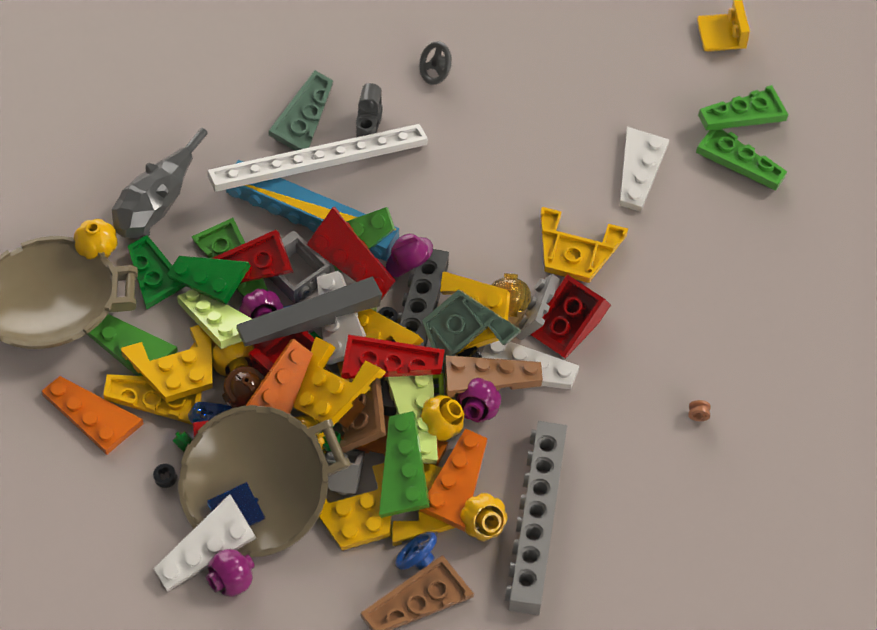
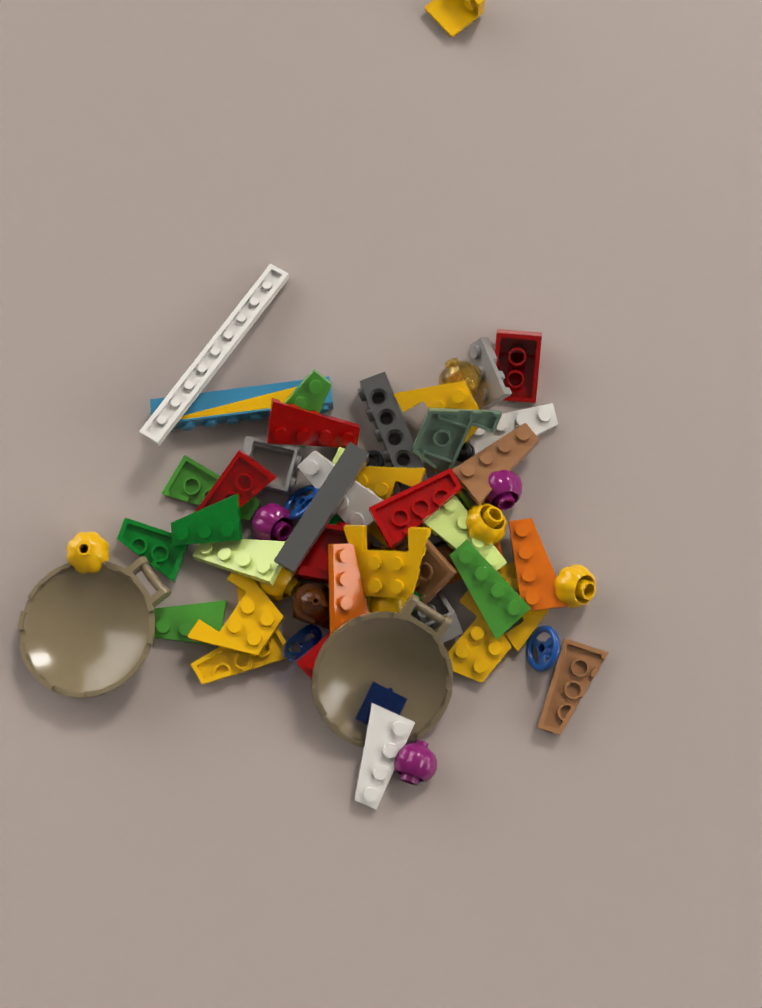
camera: 30 degrees left, 20 degrees up
(94, 416) = (205, 704): orange wing -> none
(153, 192) = (102, 475): dark grey piece -> none
(161, 469) = (305, 710): black bush -> none
(182, 440) = (296, 678): green plate -> none
(301, 117) = (167, 321): sand green wing -> none
(369, 110) = (223, 281): dark grey piece -> none
(408, 253) = (353, 395): magenta piece -> none
(440, 63) = (246, 193): dark grey piece -> none
(529, 598) = (580, 480): light grey brick -> none
(574, 254) = (479, 305): yellow wing -> none
(641, 163) = (473, 179): white wing -> none
(699, 410) = (670, 381): nougat bush -> none
(731, 153) = (536, 125): bright green wing -> none
(750, 110) = (530, 72): bright green wing -> none

